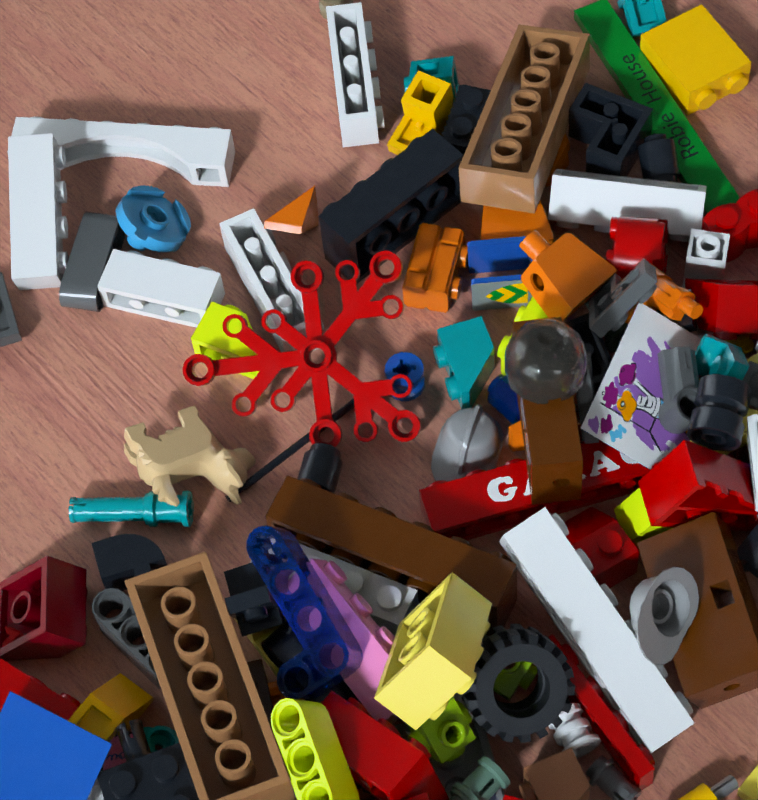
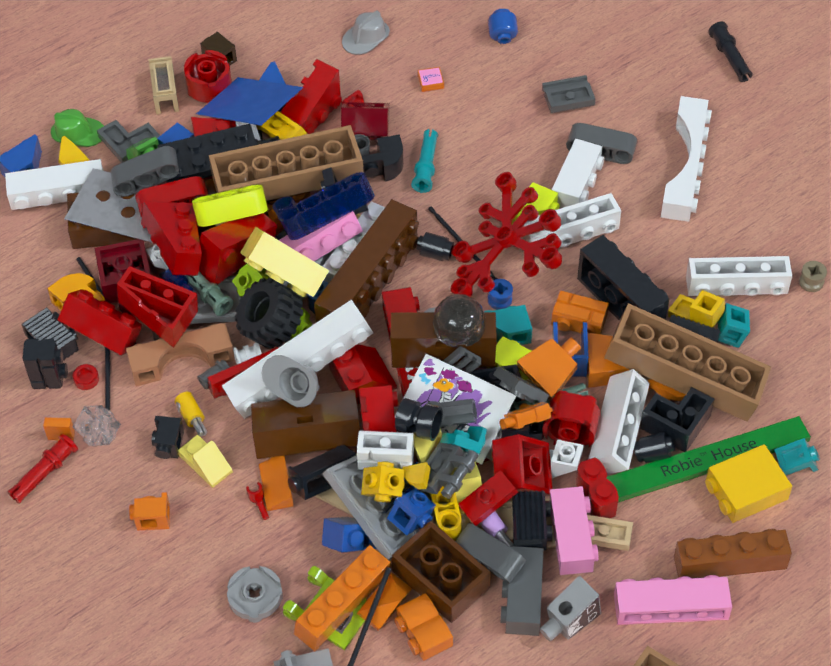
camera: 90 degrees right, 5 degrees down
(36, 211) = (635, 108): white brick -> none
(152, 220) = (632, 157): dark azure plate -> none
(186, 454) = (455, 181): tan animal -> none
(297, 216) = (615, 233): orange slope -> none

